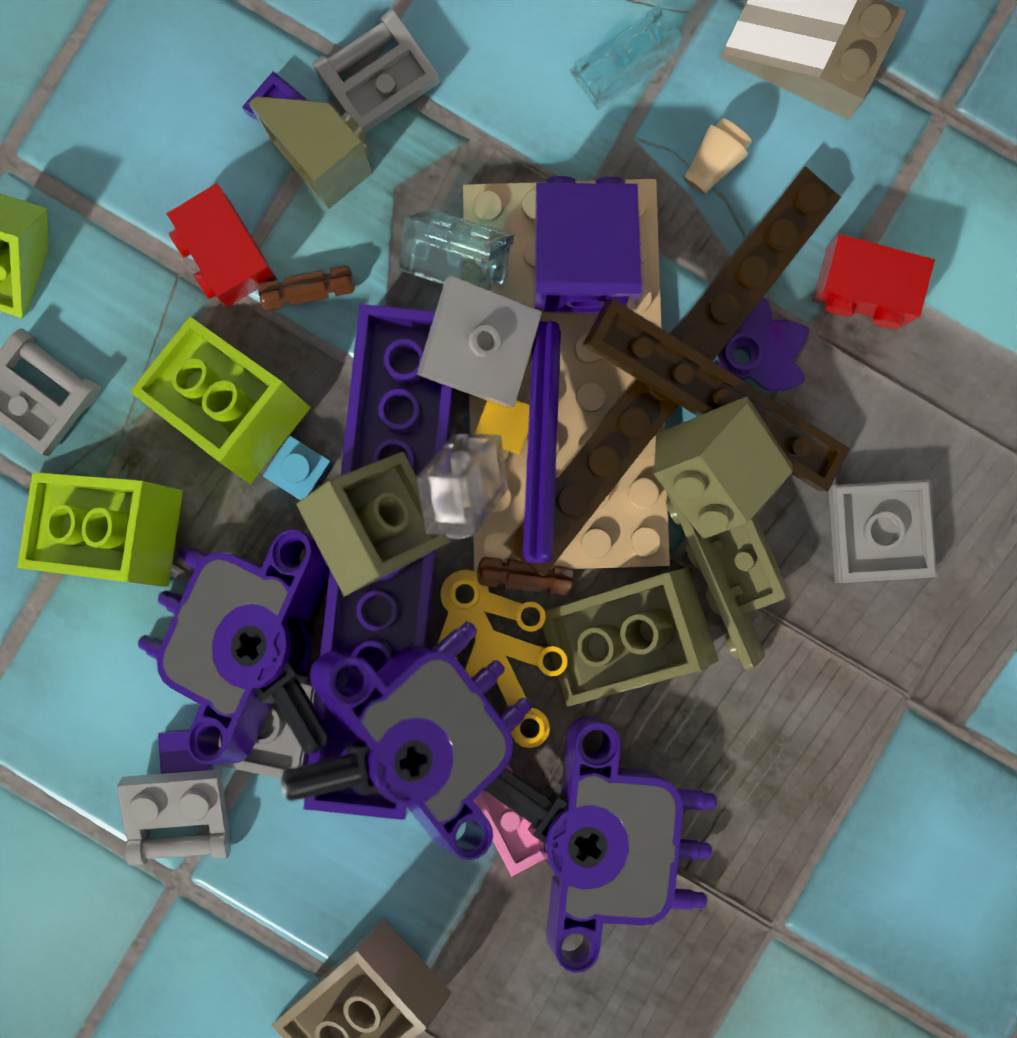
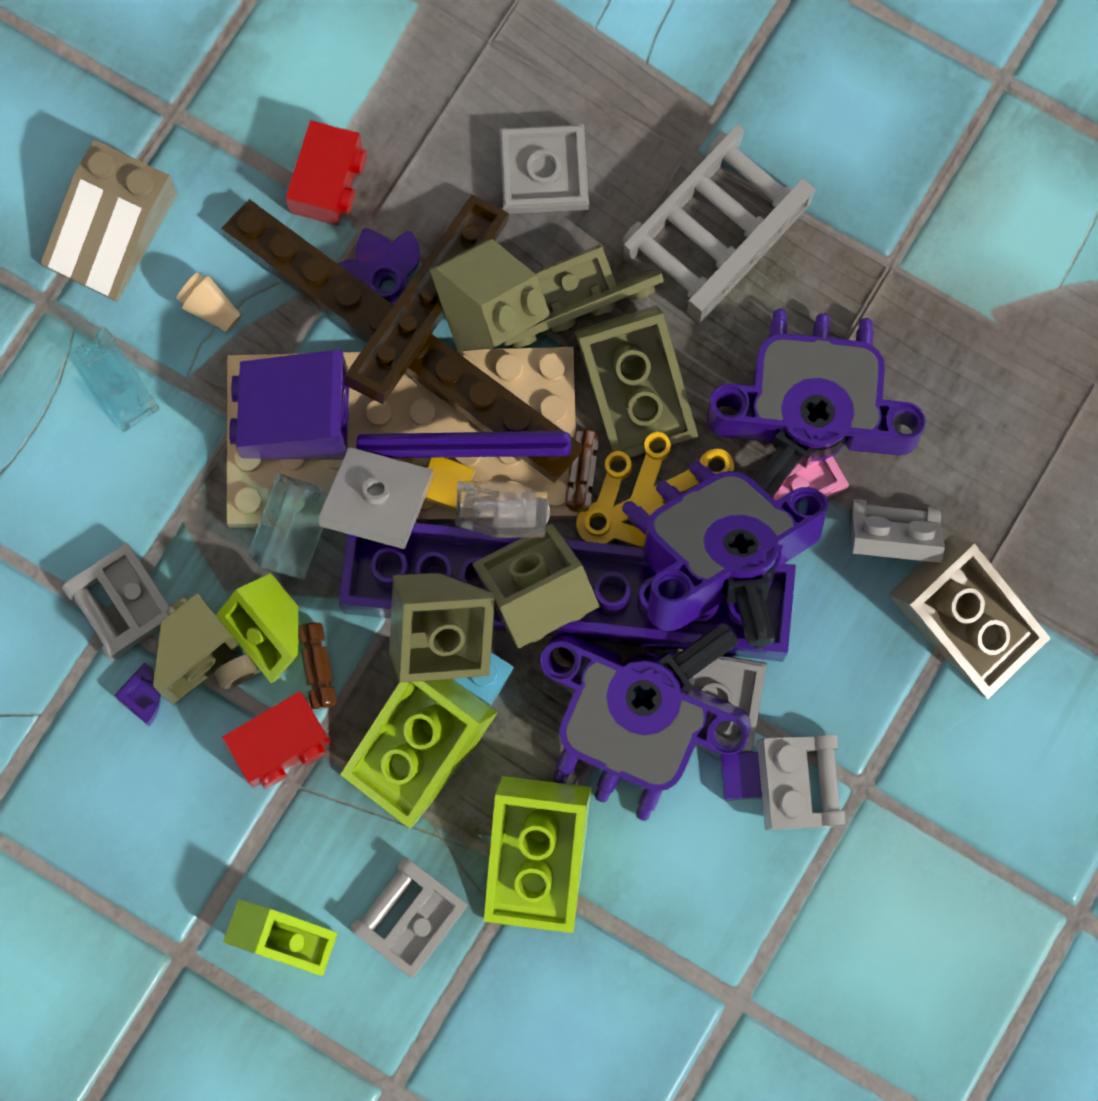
camera: 90 degrees left, 10 degrees down
(296, 201) = (236, 672): none -> dark tan tile
(321, 414) = (439, 628): none -> olive slope
(344, 226) = (263, 624): none -> lime slope
(441, 932) = (896, 532): none -> light grey plate
(810, 778) = (731, 262): none -> light grey fence

